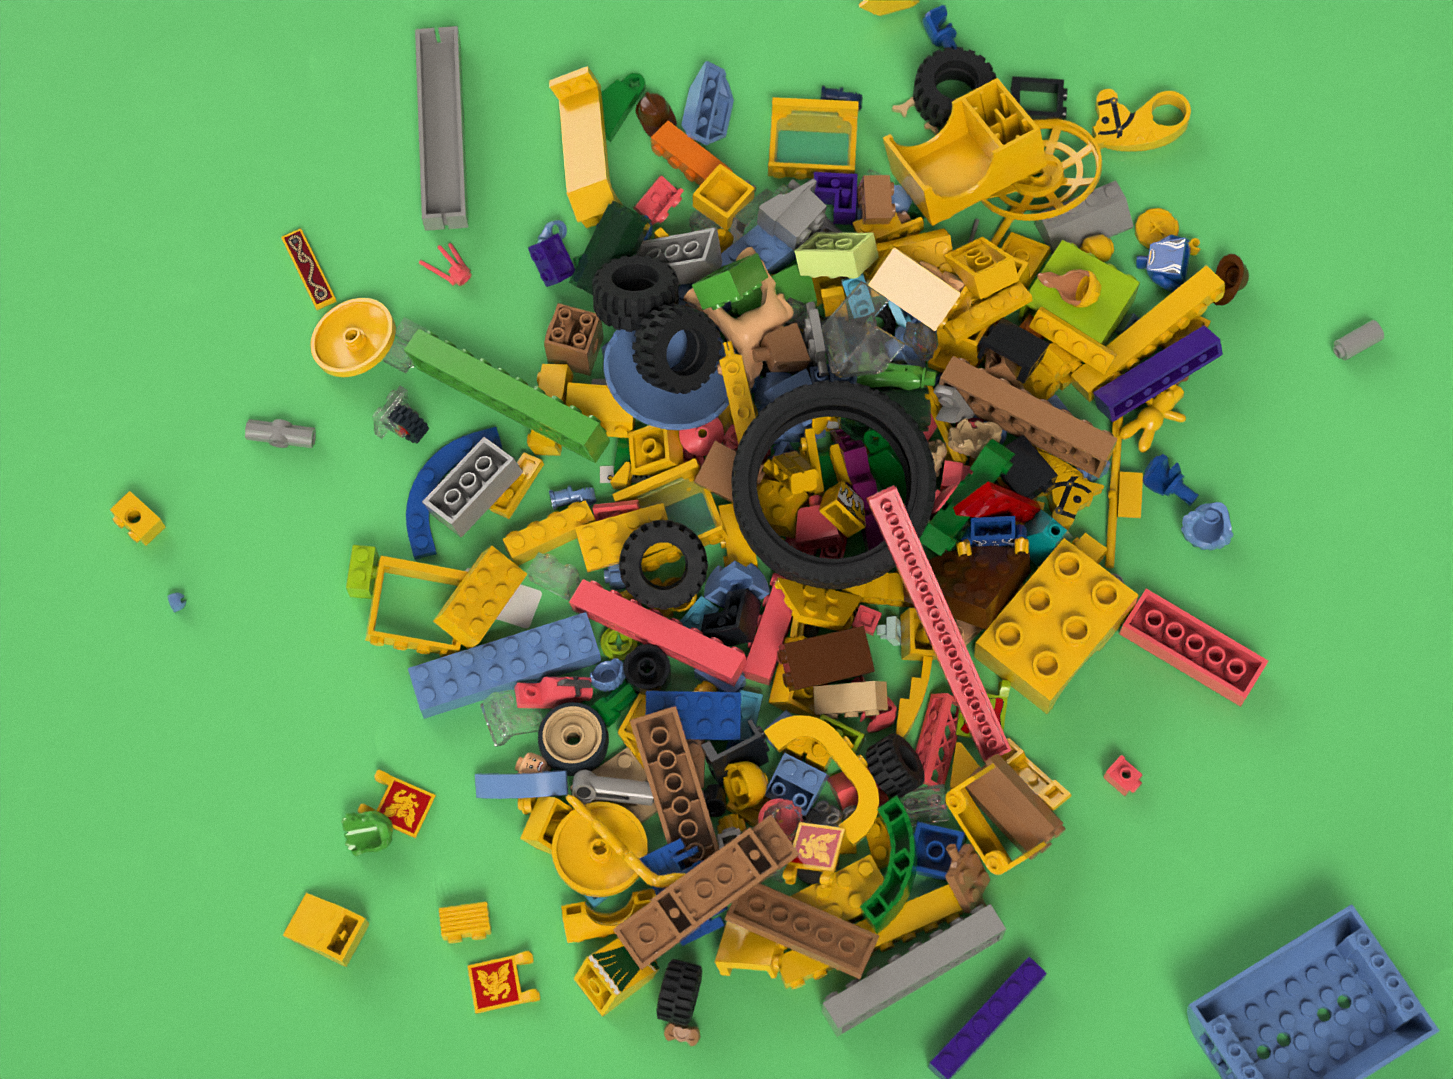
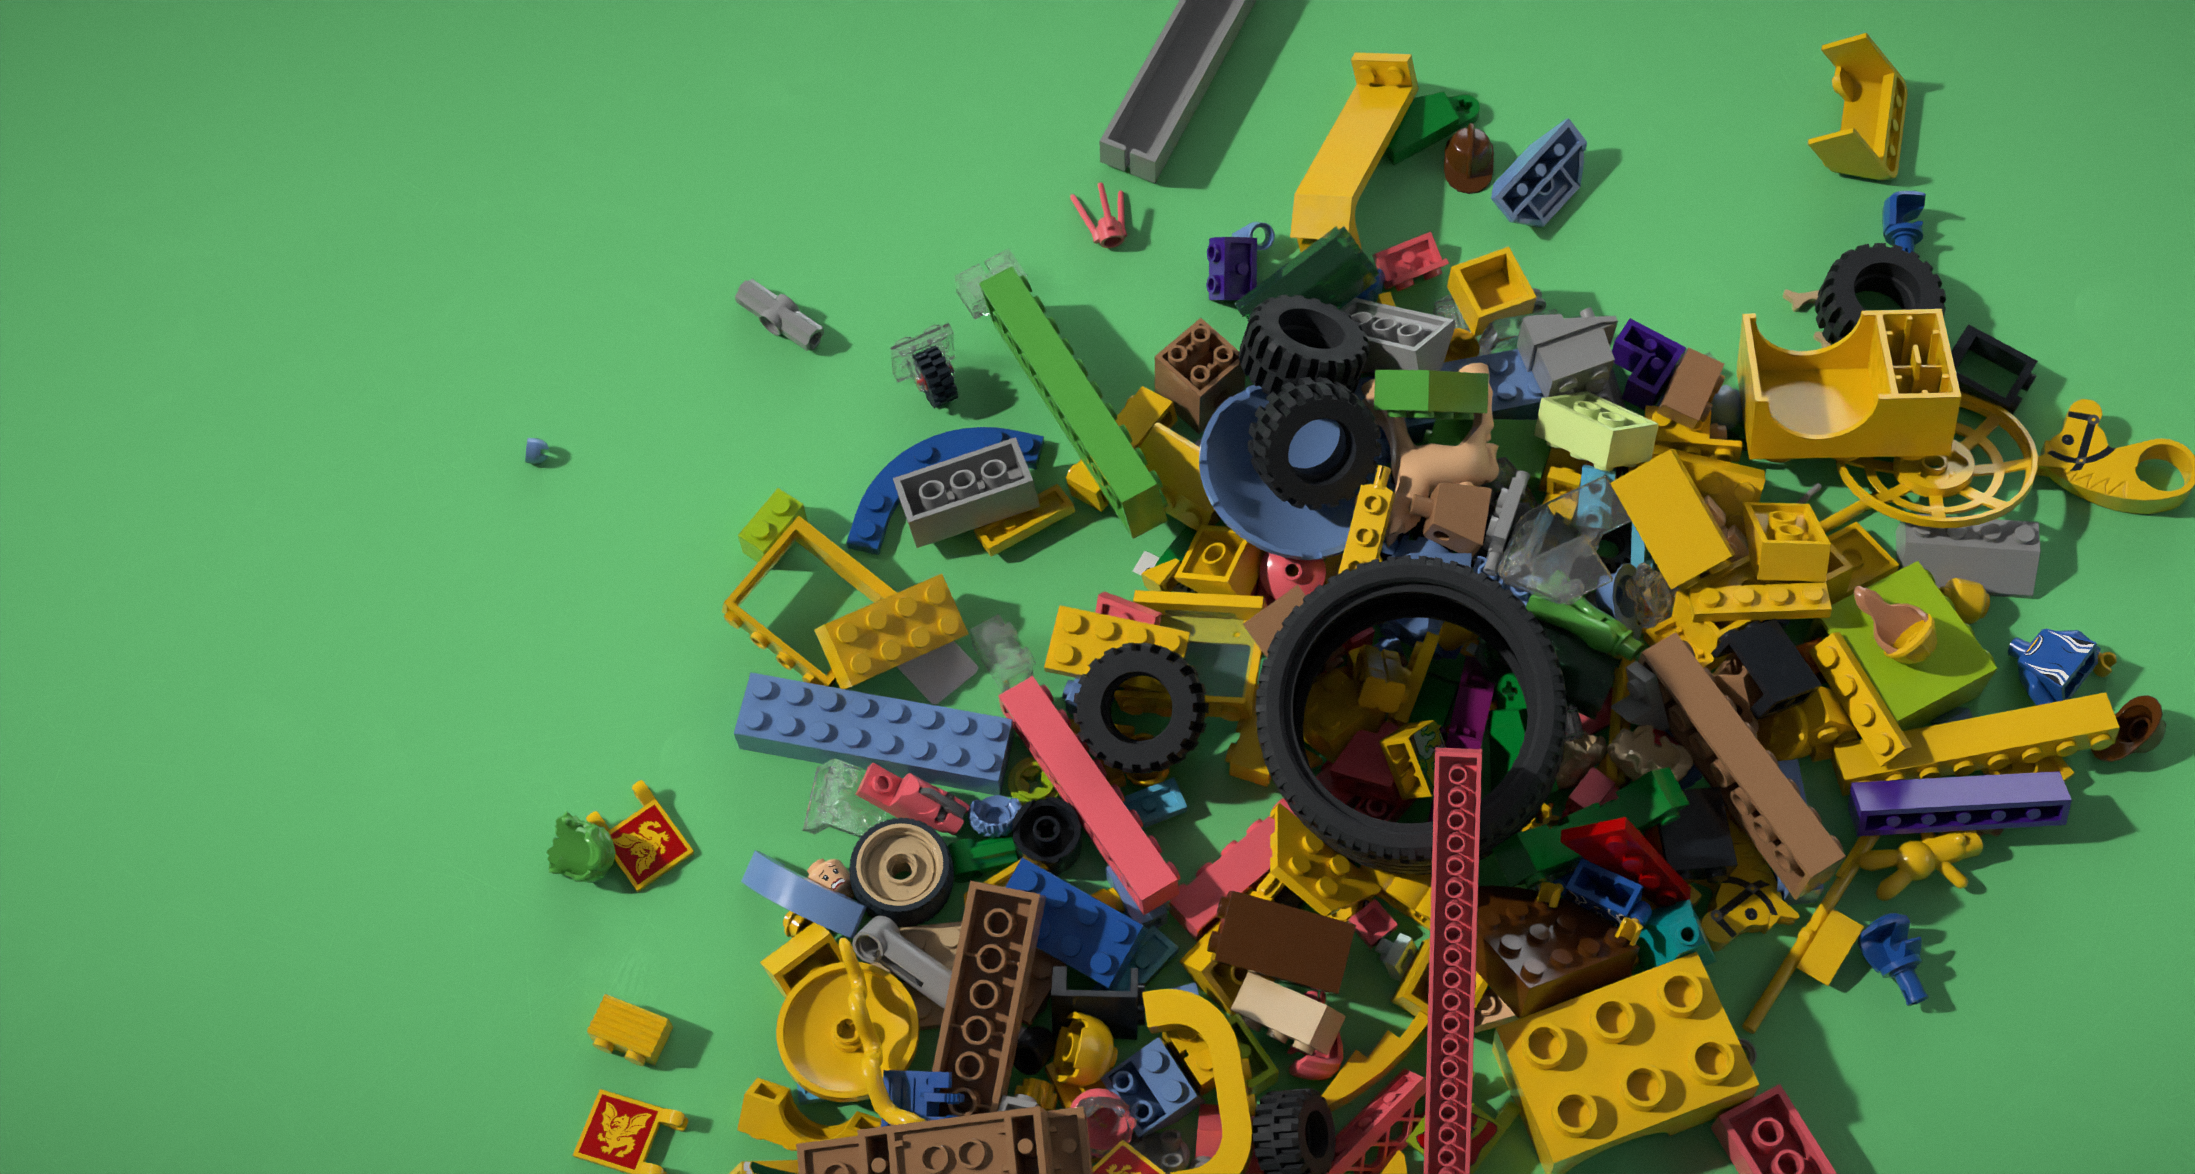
camera: 30 degrees right, 5 degrees down
(131, 507) = (554, 346): yellow brick -> none
(308, 269) = (933, 140): tile -> none
(326, 929) = (458, 946): yellow slope -> none
(353, 337) = (933, 243): yellow dish -> none
(548, 533) = (1024, 598): yellow brick -> none
(567, 497) = (1080, 566): medium blue connector -> none
(684, 153) = (1475, 216): orange brick -> none
(733, 578) = (1224, 788): medium blue brick -> none
(737, 620) = (1197, 833): black brick -> none
(812, 137) = (1657, 277): panel -> none
(838, 464) = (1448, 699): yellow tile -> none
(839, 95) = (1722, 248): dark blue connector -> none
(941, 498) = (1554, 811): coral dish -> none
(1090, 547) = (1731, 990): yellow brick -> none
(1154, 226) = (2064, 609): yellow tile -> none
(1208, 526) = (1917, 1047): medium blue hair -> none

